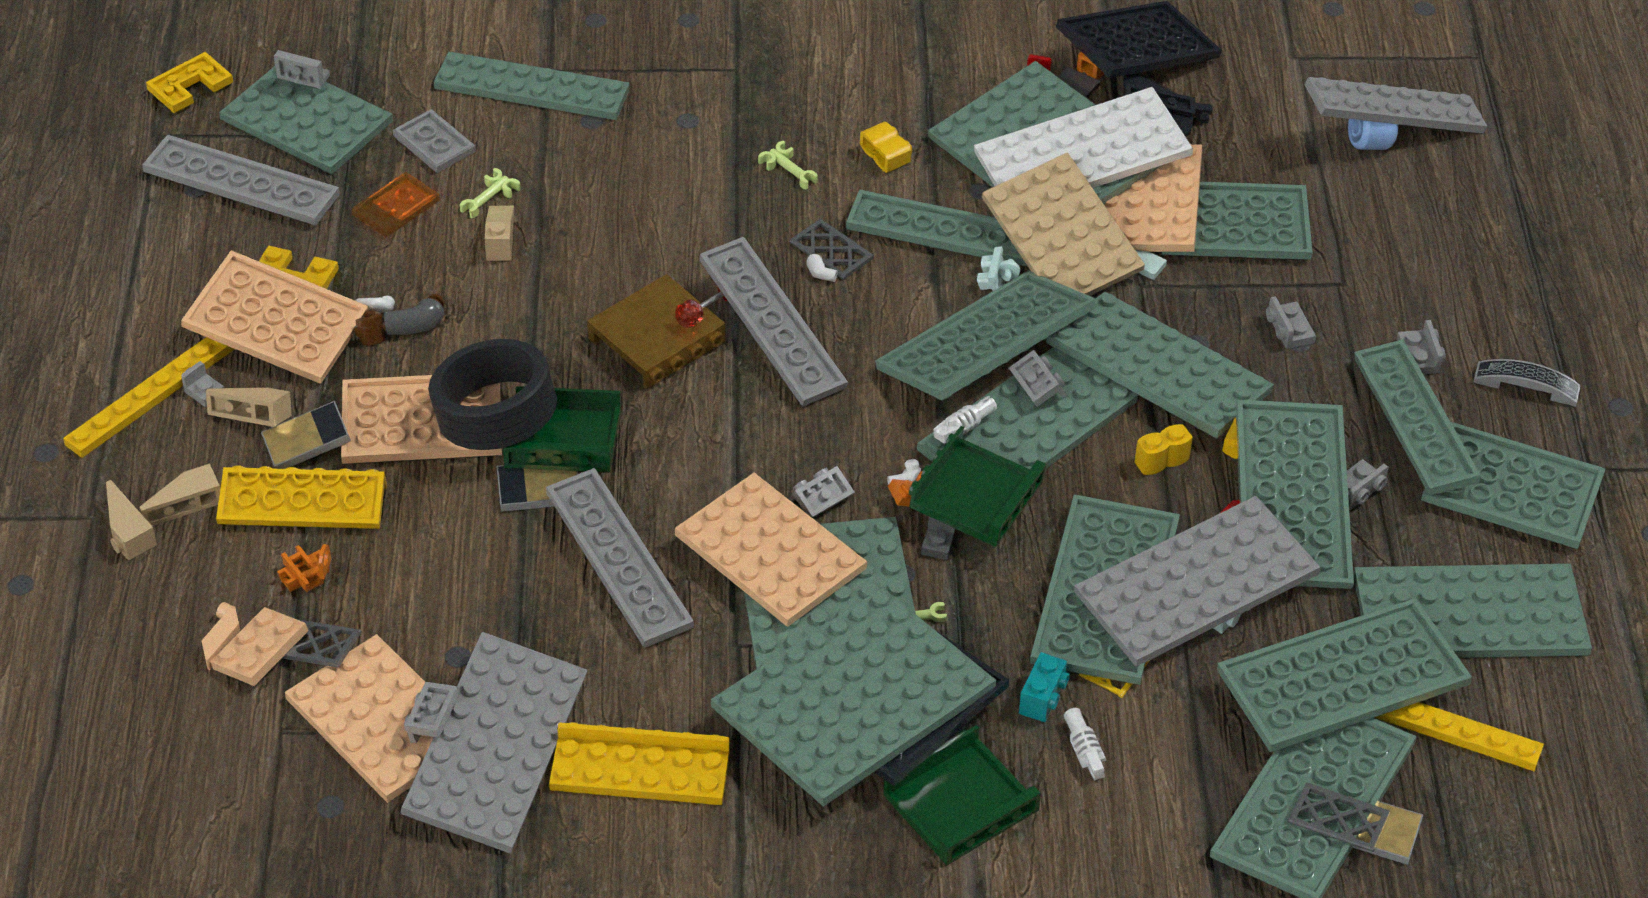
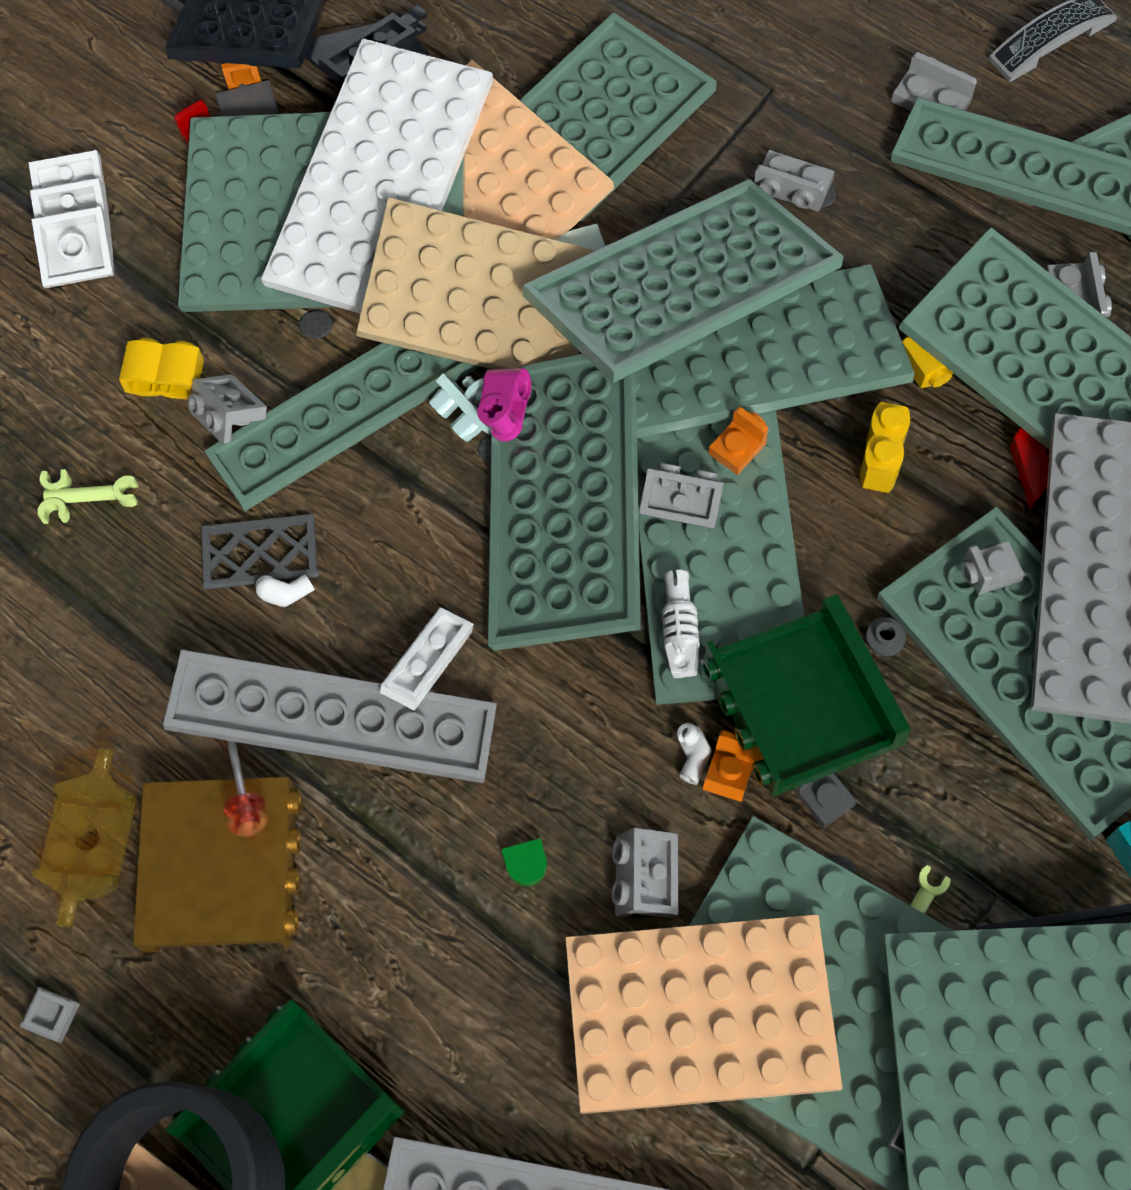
camera: 45 degrees left, 20 degrees up
(525, 322) = (49, 1015): none -> light grey tile
(636, 269) = (83, 806): none -> clear yellow plate
(779, 446) = (526, 862): none -> green tile
(842, 339) = (426, 658): none -> white tile
(893, 178) = (223, 402): none -> light grey bracket
(929, 60) = (71, 219): none -> white slope
(1012, 278) = (504, 401): none -> dark pink piece
(1054, 516) = (881, 646): none -> dark grey plate
(1096, 385) = (740, 440): none -> orange bracket
(1136, 527) = (991, 567): none -> light grey bracket
(1164, 300) = (681, 279): none -> sand green plate

